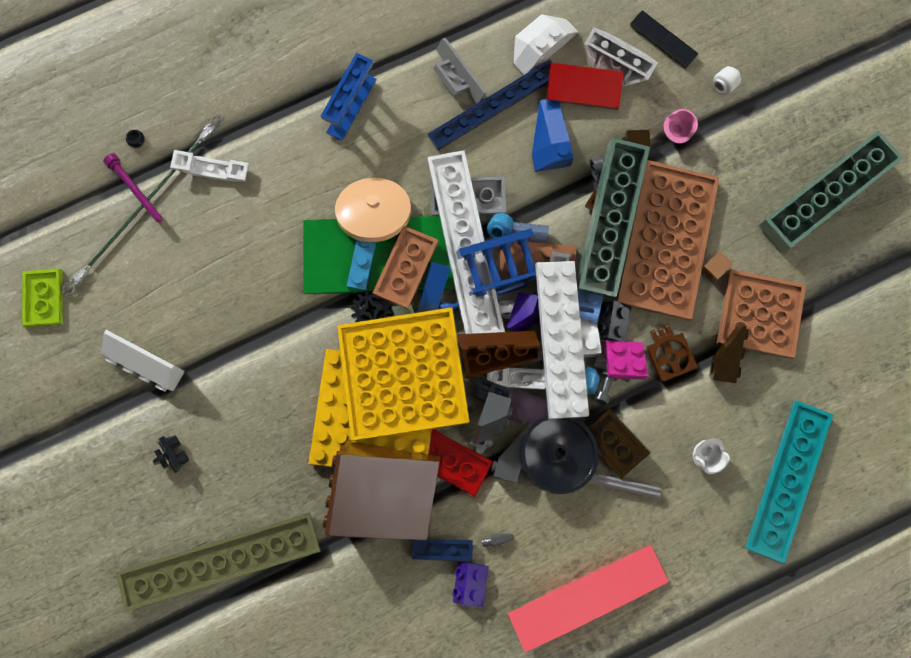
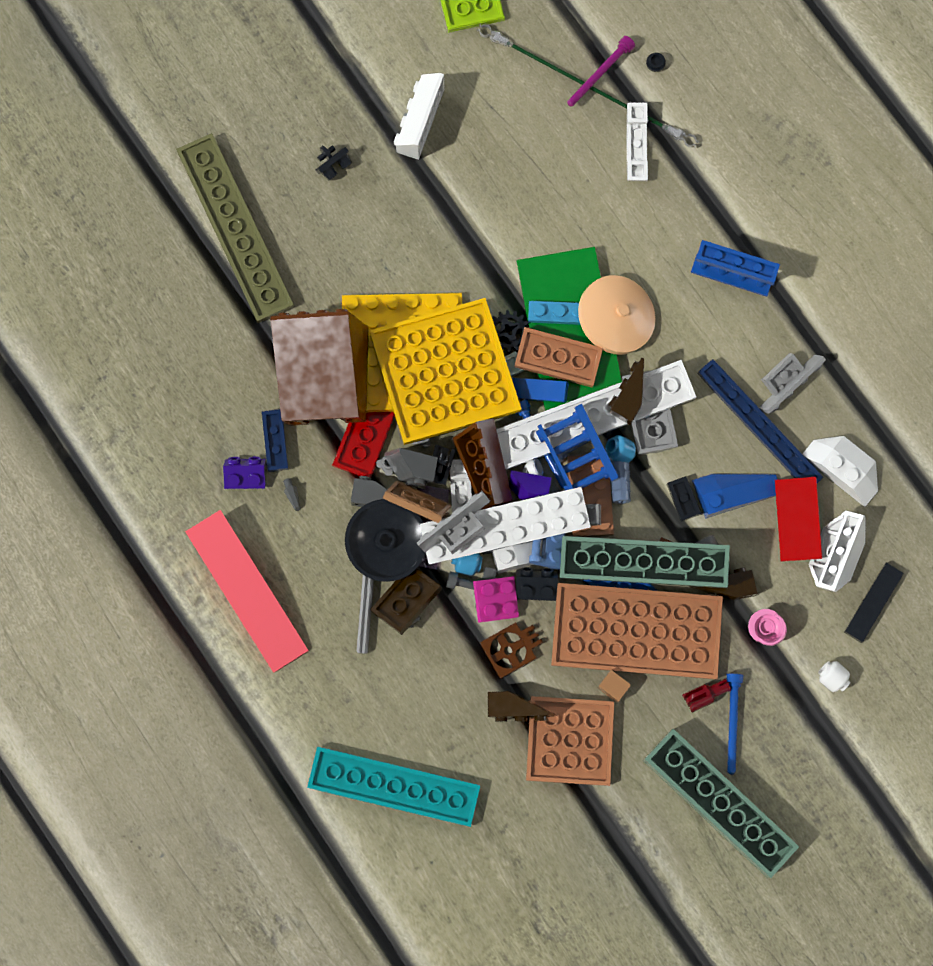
camera: 80 degrees right, 0 degrees up
(458, 206) = (630, 398): none -> dark brown slope
(527, 418) = (417, 501): none -> medium nougat tile
(552, 180) = (683, 499): none -> black plate
(564, 380) = (457, 528): none -> light grey bracket
(710, 456) = (406, 698): white helmet -> none
(721, 163) = (734, 682): none -> blue piece
(731, 186) = (705, 695): none -> dark red arm

